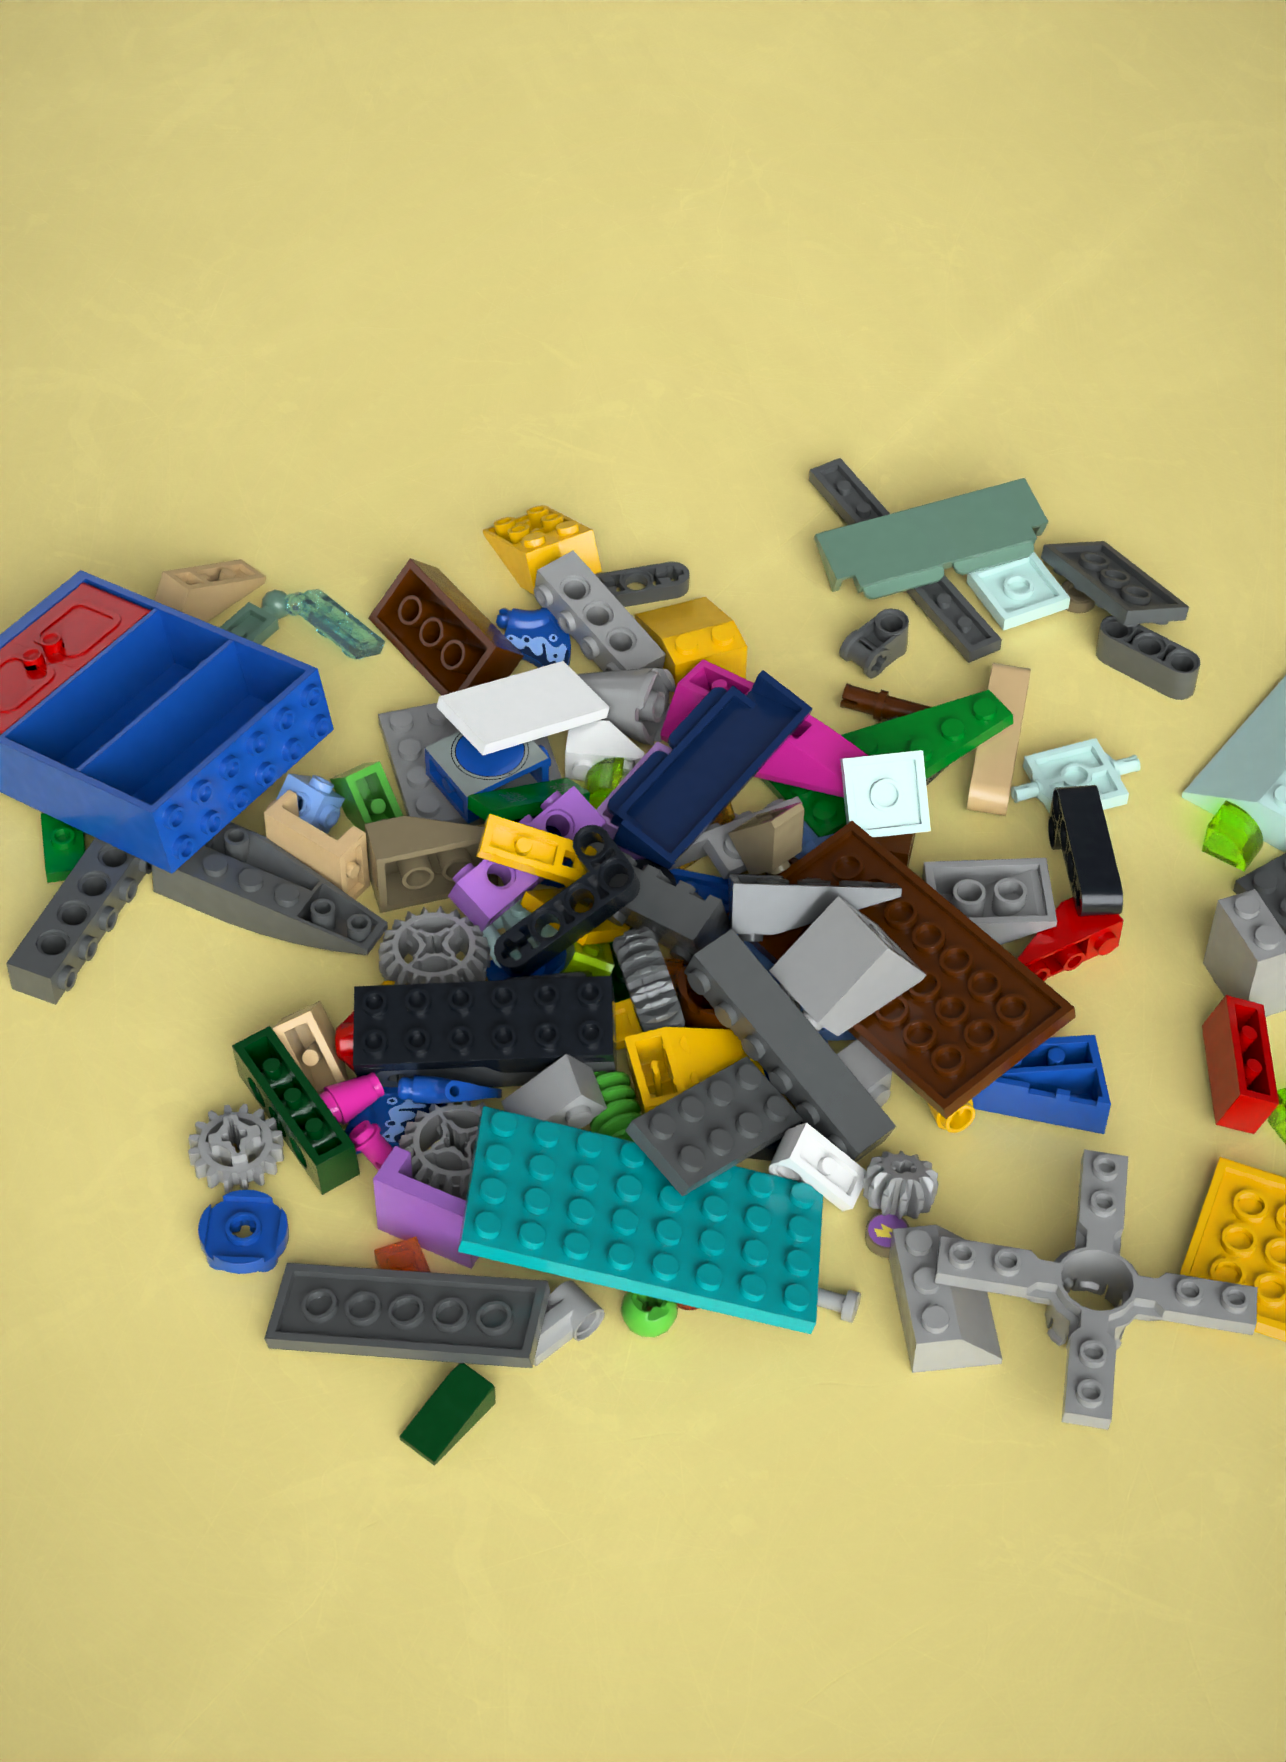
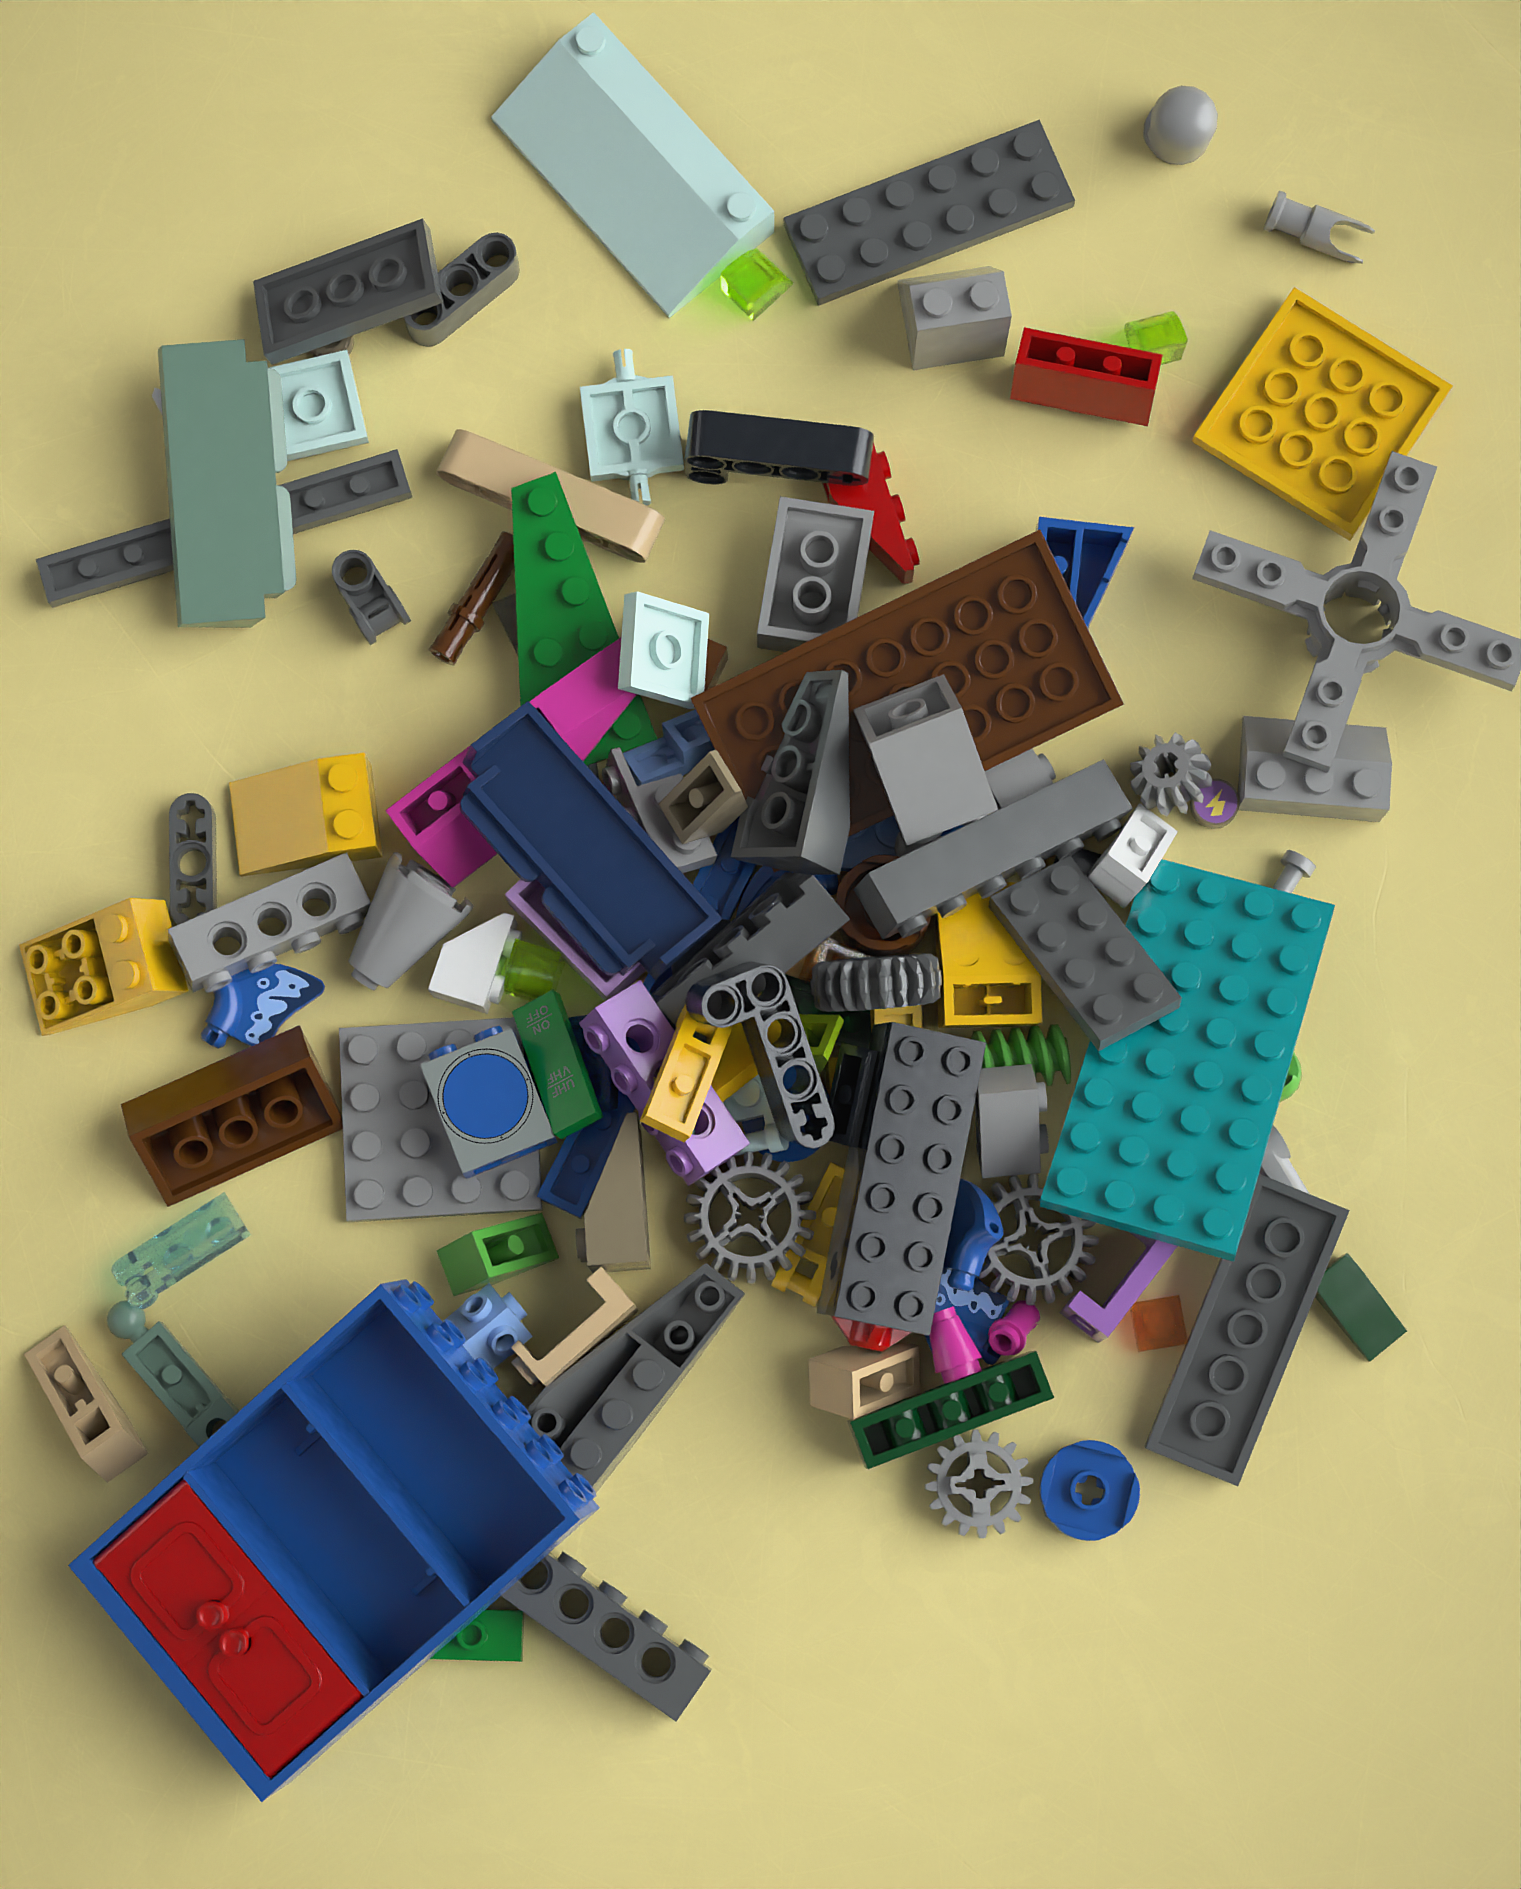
camera: 75 degrees left, 30 degrees up
(522, 707) = (428, 1043): white tile -> none

